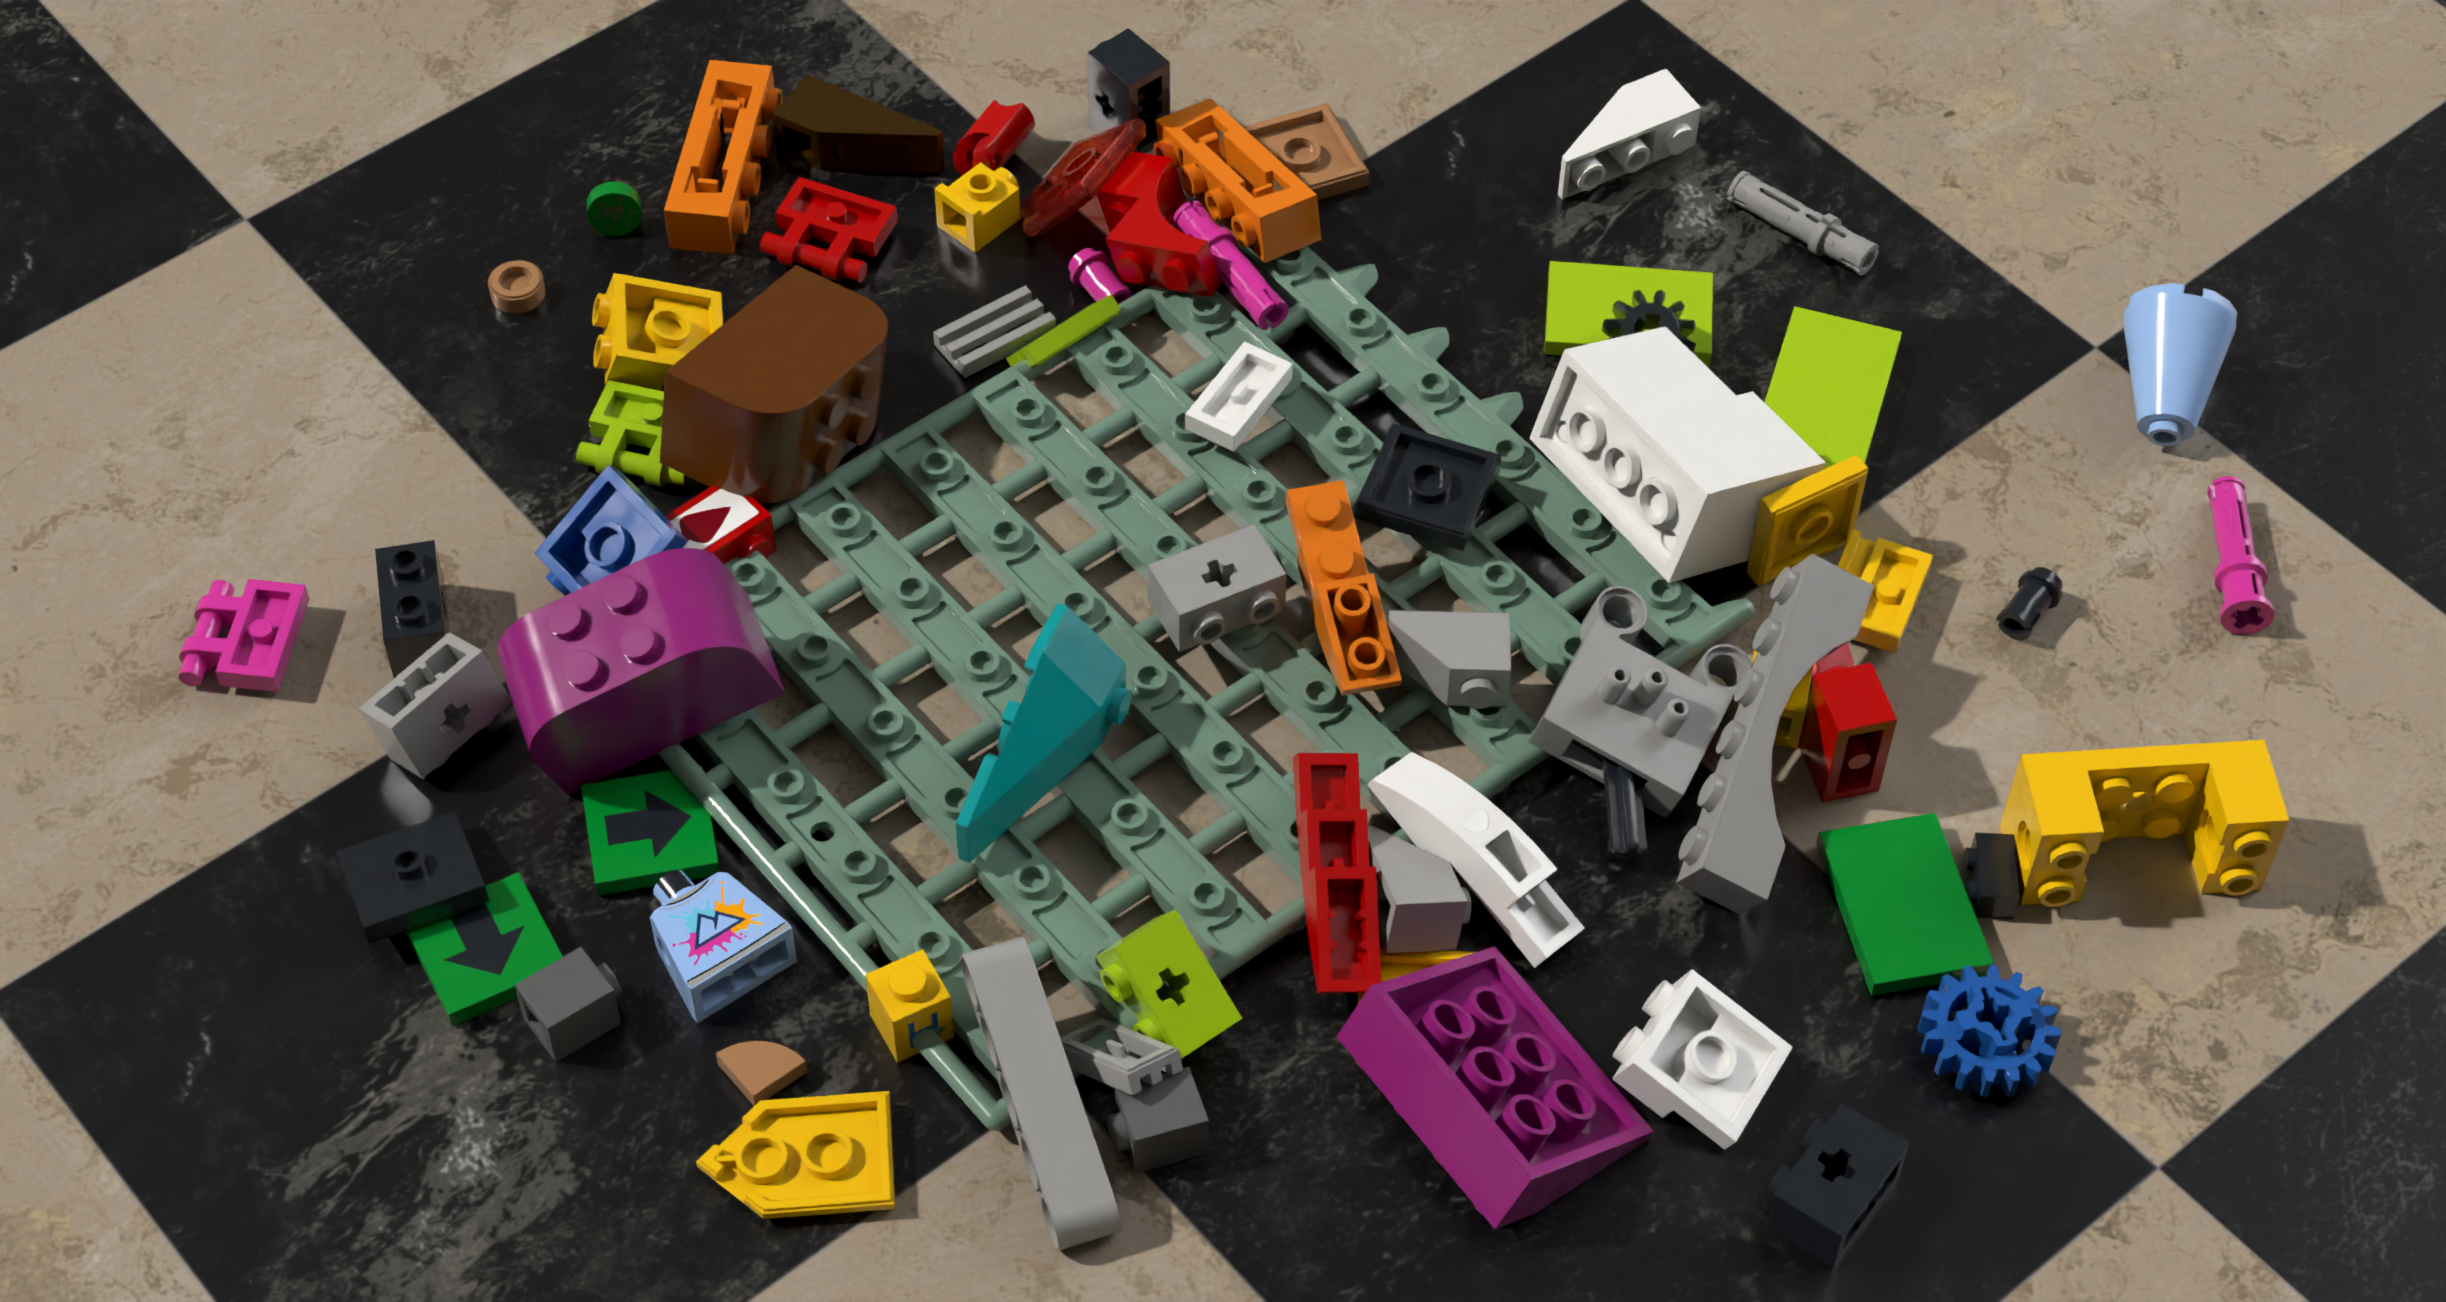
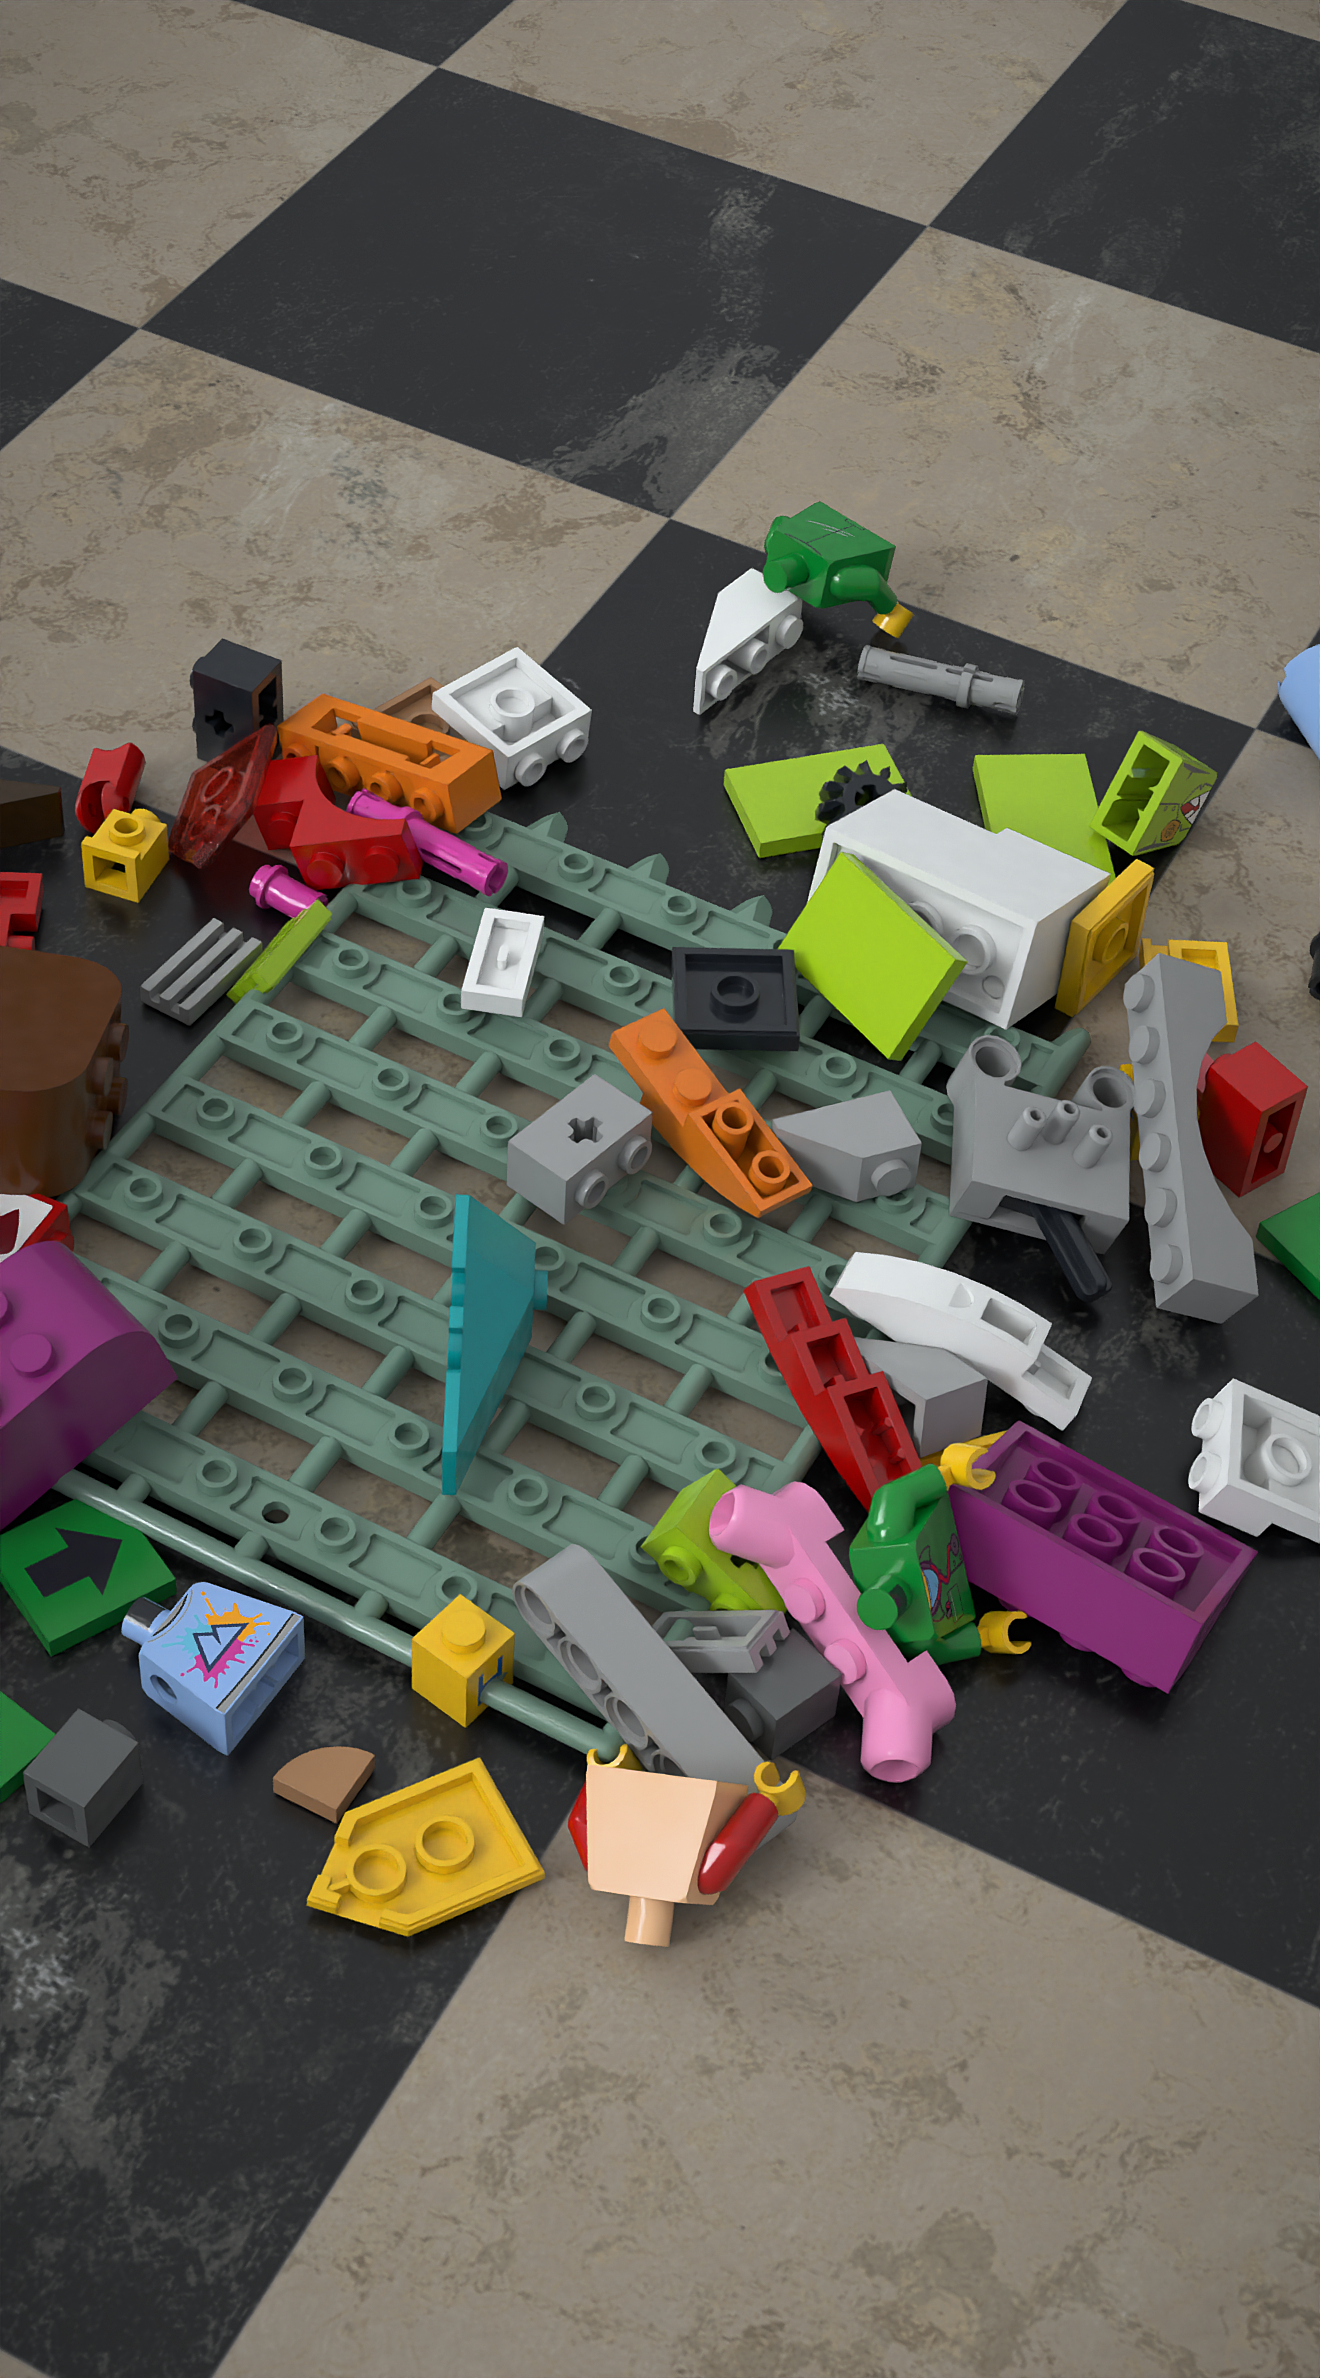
camera: 25 degrees left, 5 degrees down
(999, 1208) = (670, 1835): none -> light nougat torso
(1209, 988) = (897, 1698): none -> bright pink plate
(1310, 1053) = (914, 1569): none -> green torso
(1375, 163) = (517, 714): none -> white plate
(1561, 481) = (872, 956): none -> lime tile
(1739, 80) = (833, 563): none -> green torso
(1934, 393) = (1153, 796): none -> lime torso

